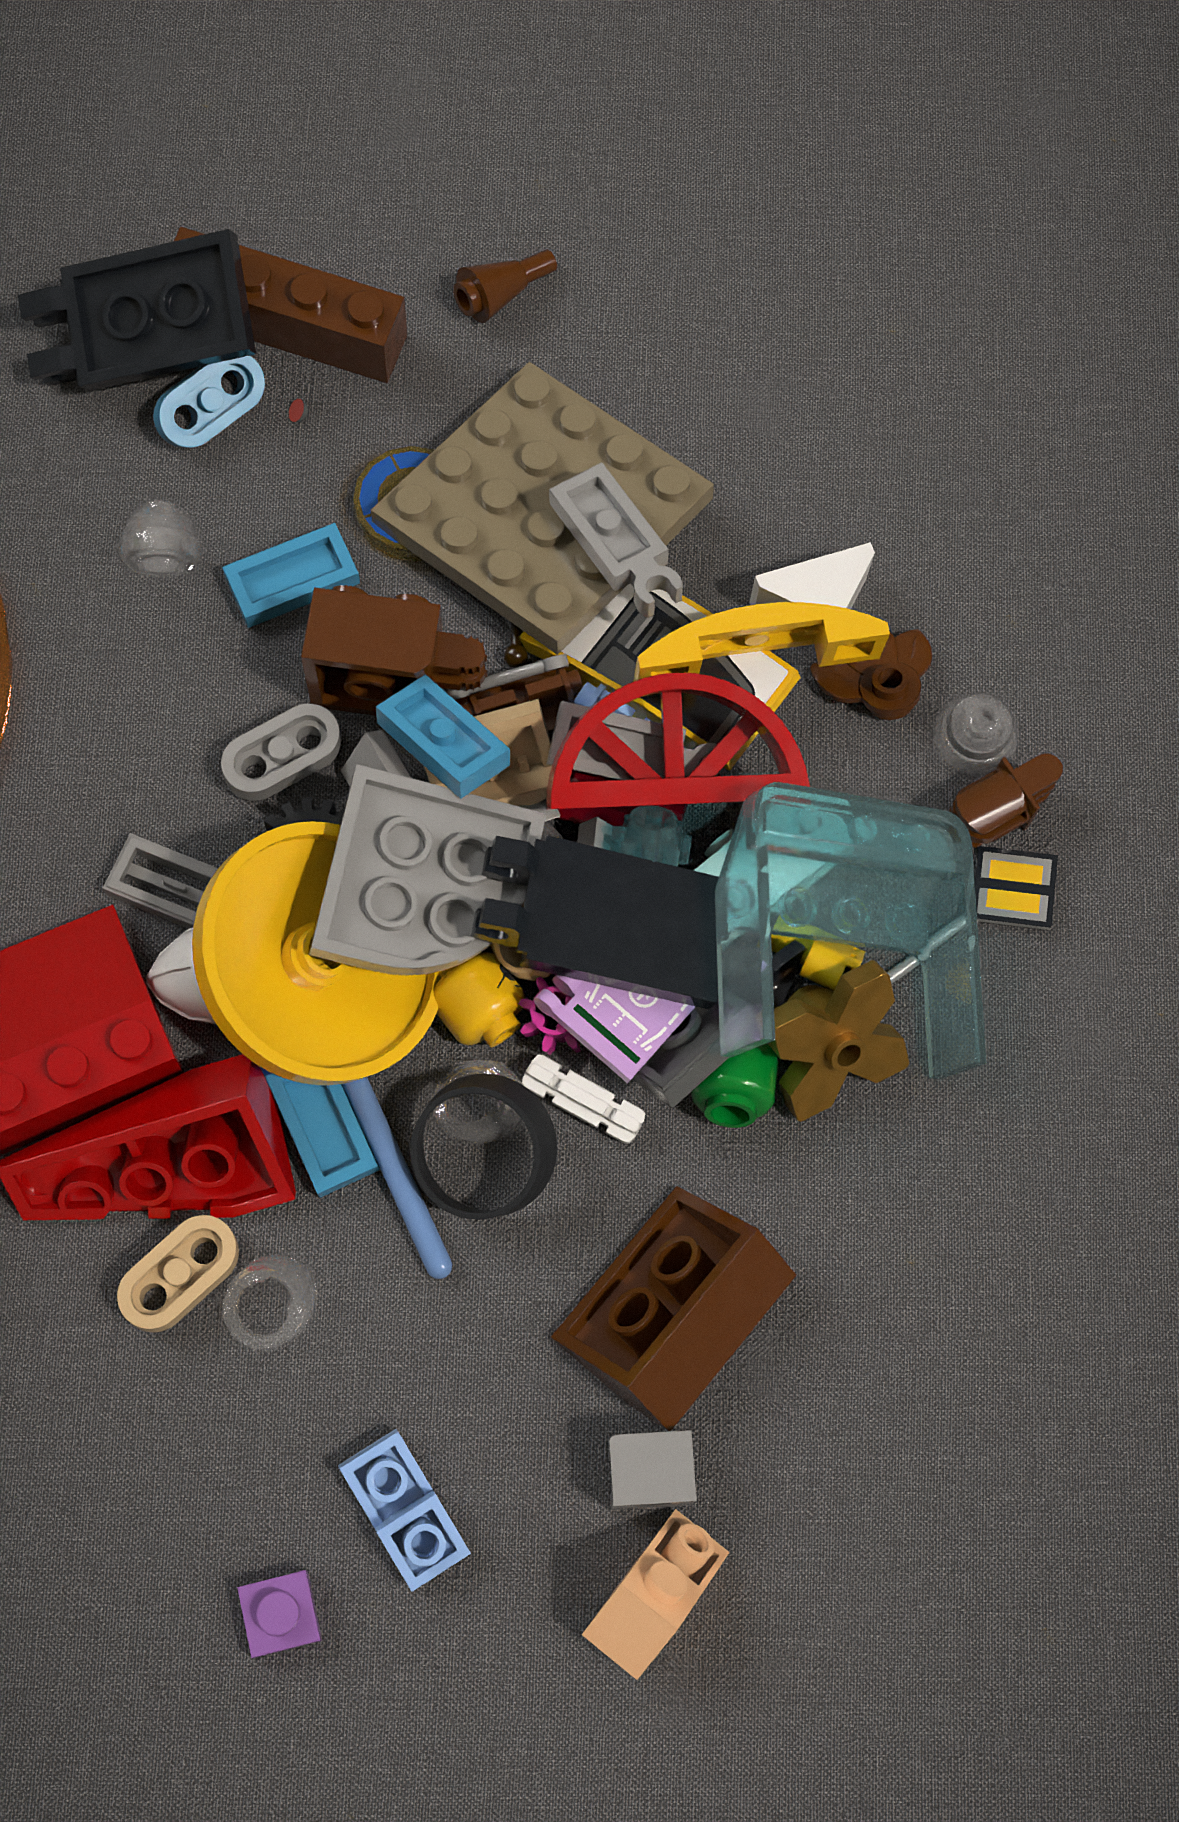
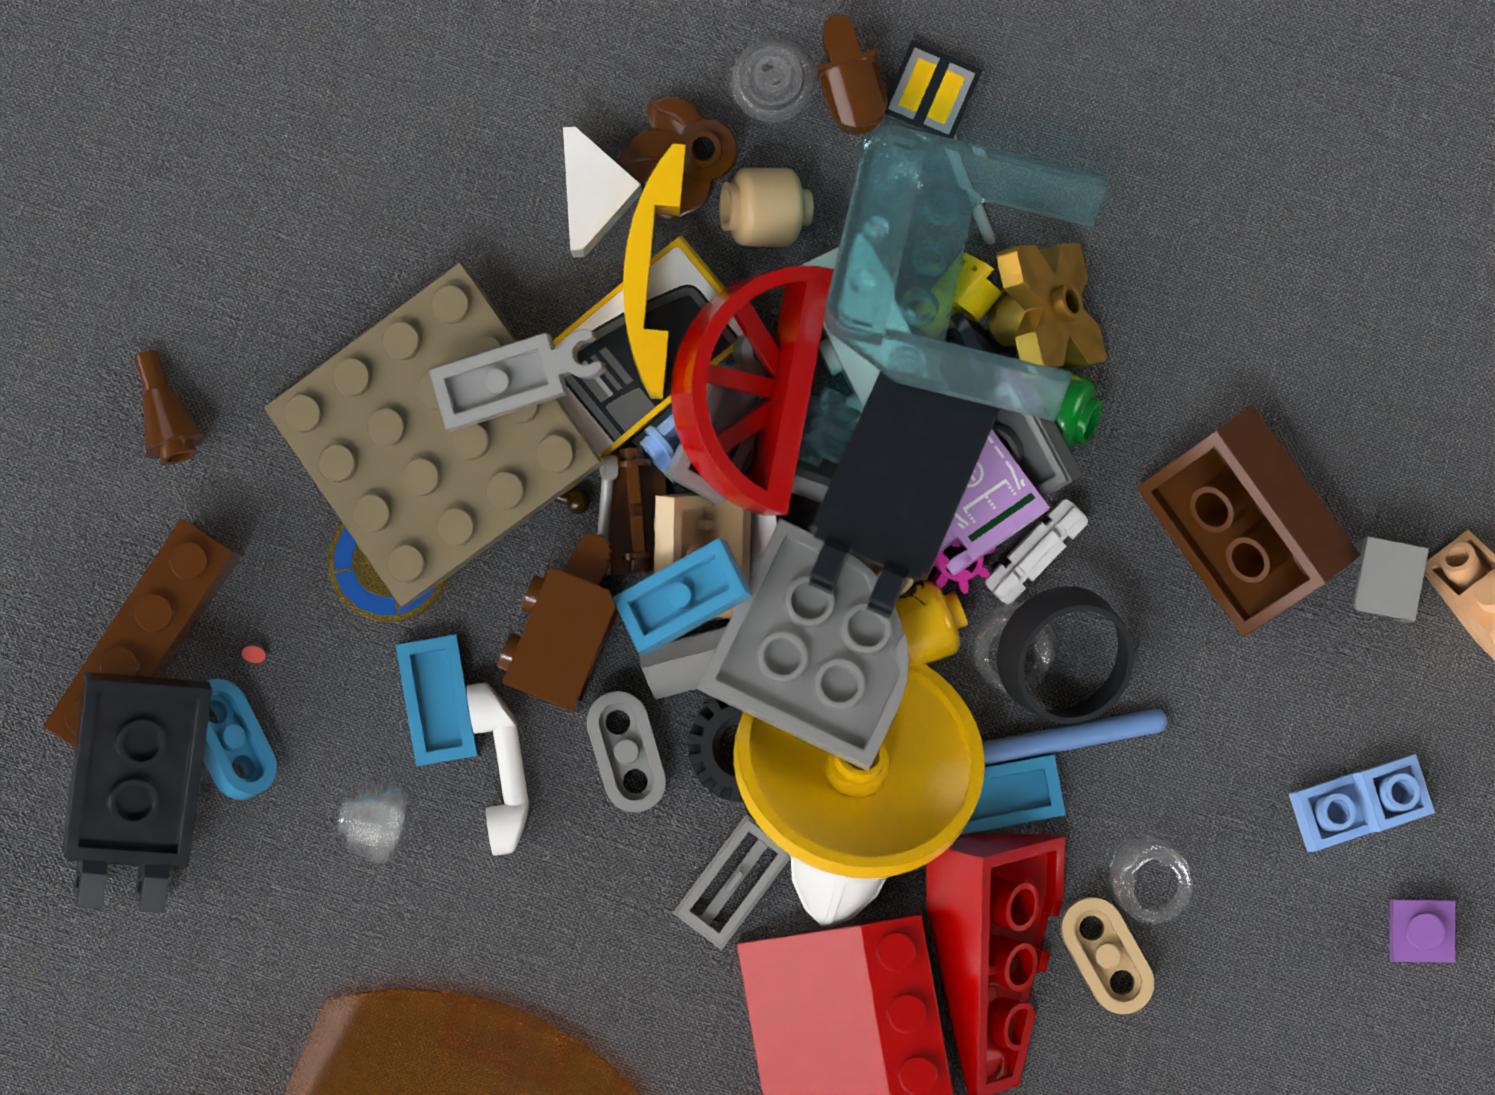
camera: 70 degrees left, 15 degrees up
(183, 660) = (508, 820): none -> white bar
(851, 750) = (765, 207): none -> tan head

